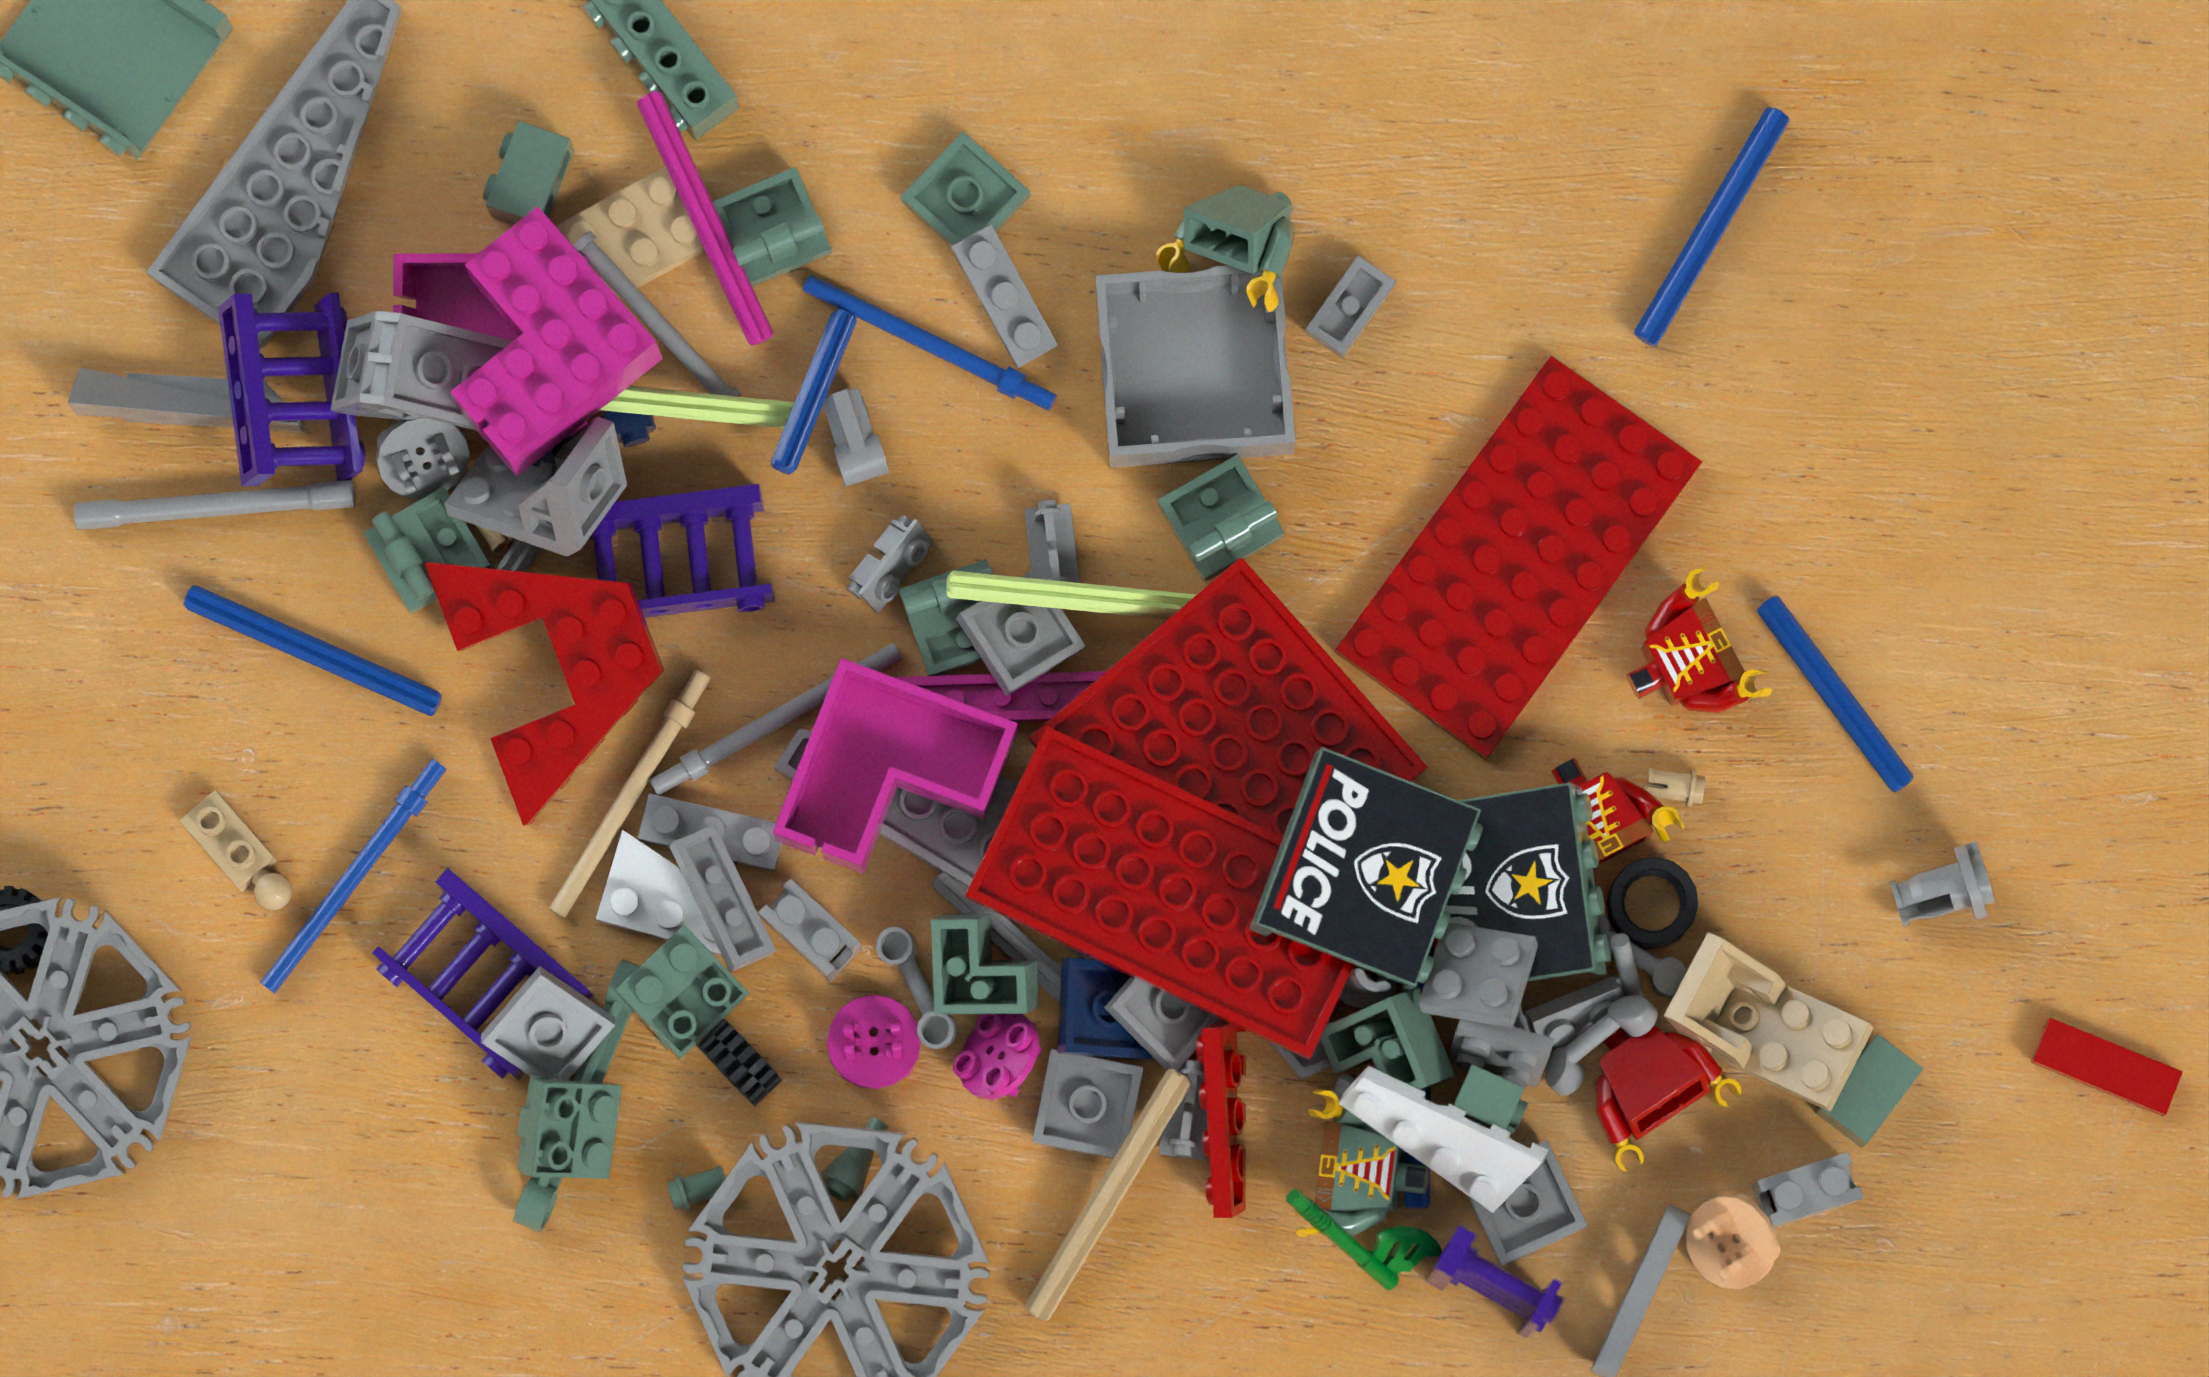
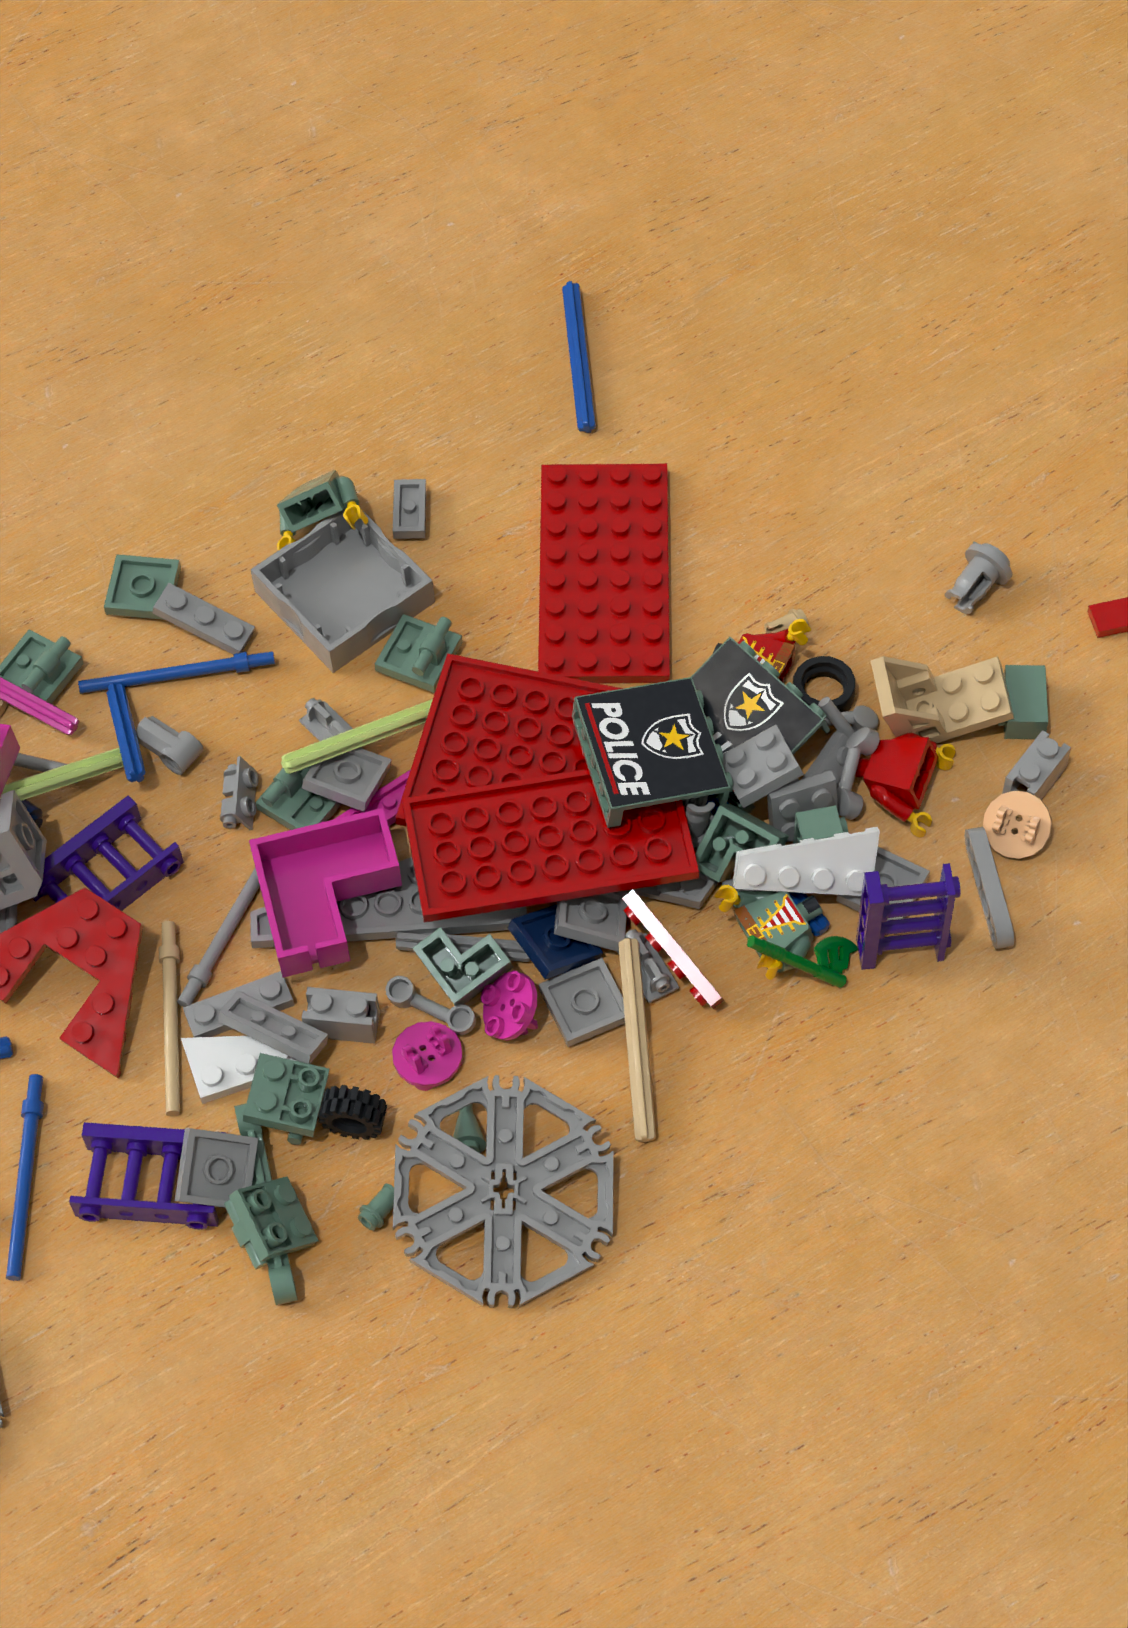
camera: 35 degrees left, 20 degrees down
(1692, 655) = (742, 554): torso -> none
(1835, 693) = (835, 528): blue axle -> none

